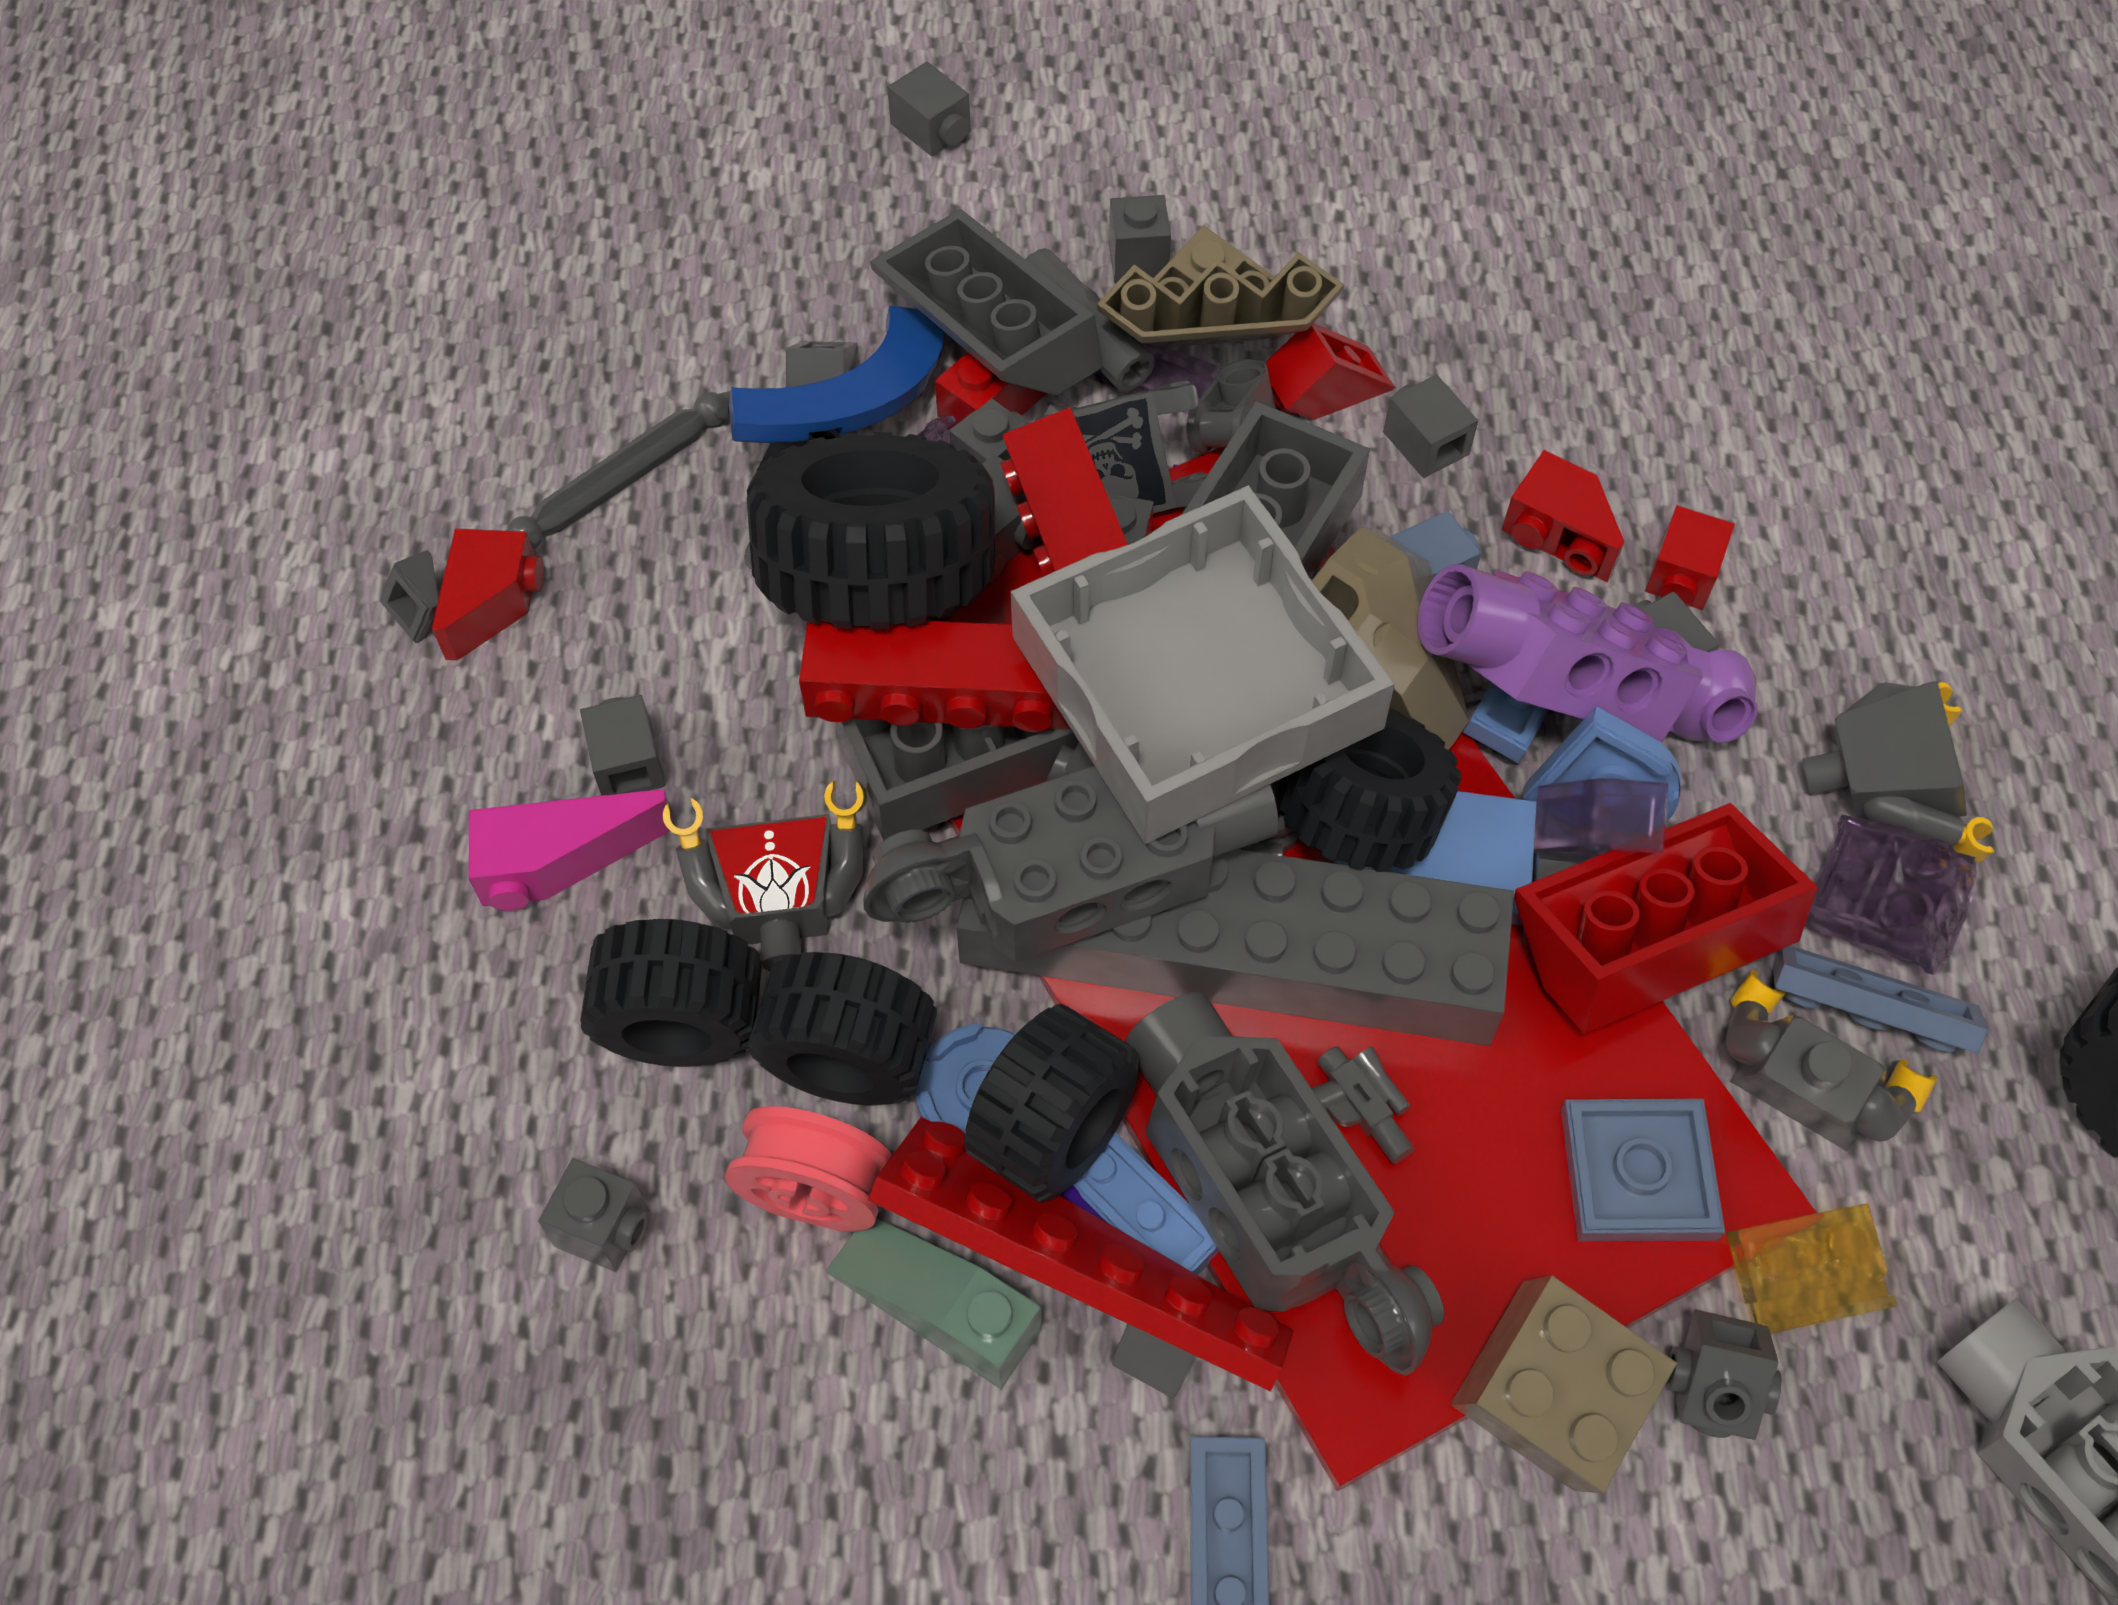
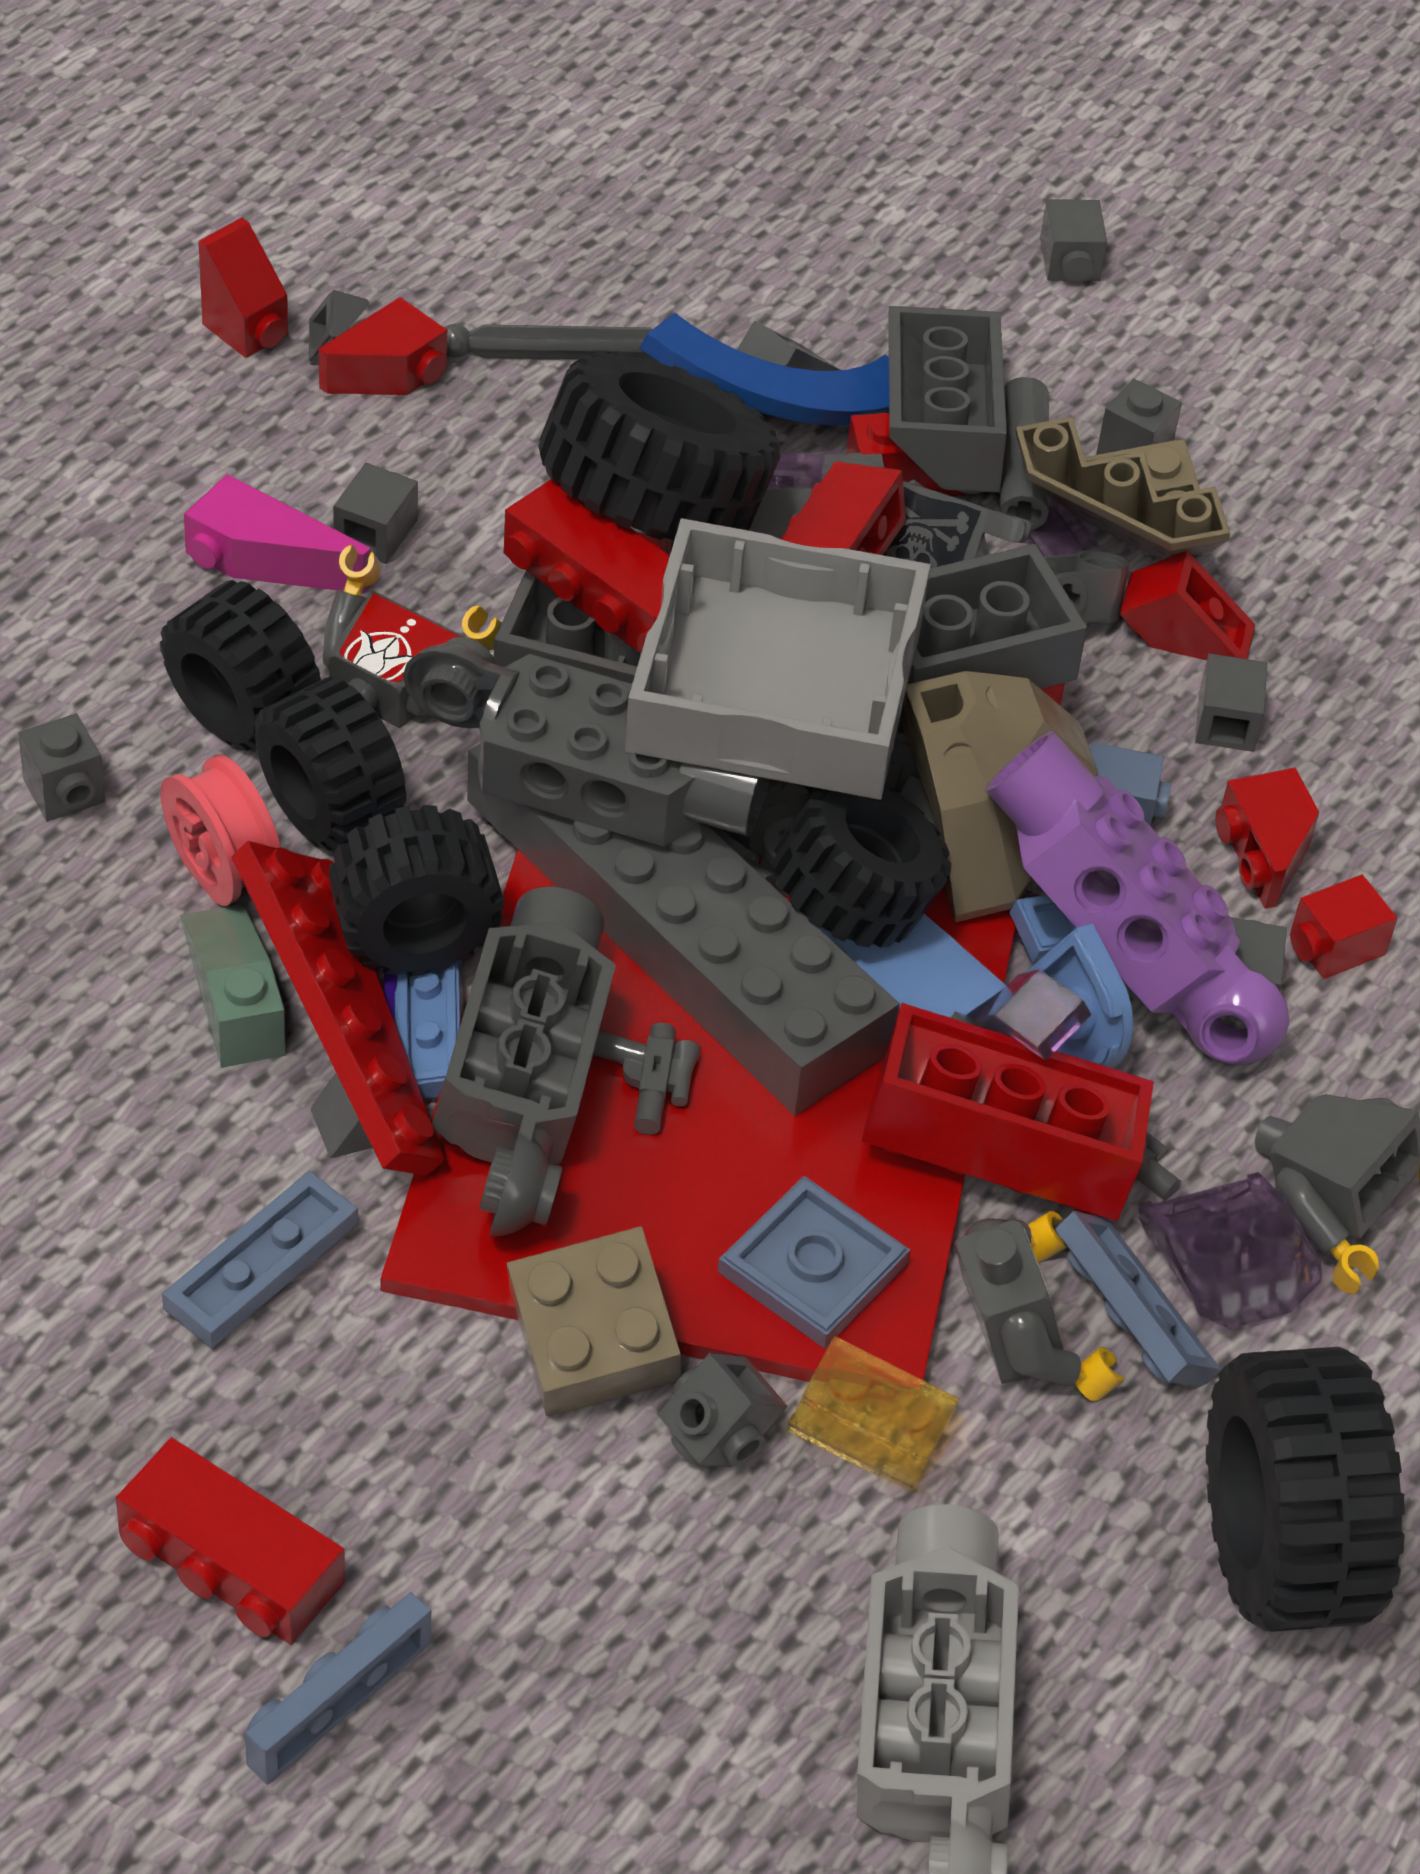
camera: 35 degrees right, 10 degrees down
(307, 620) = (241, 290): none -> red slope

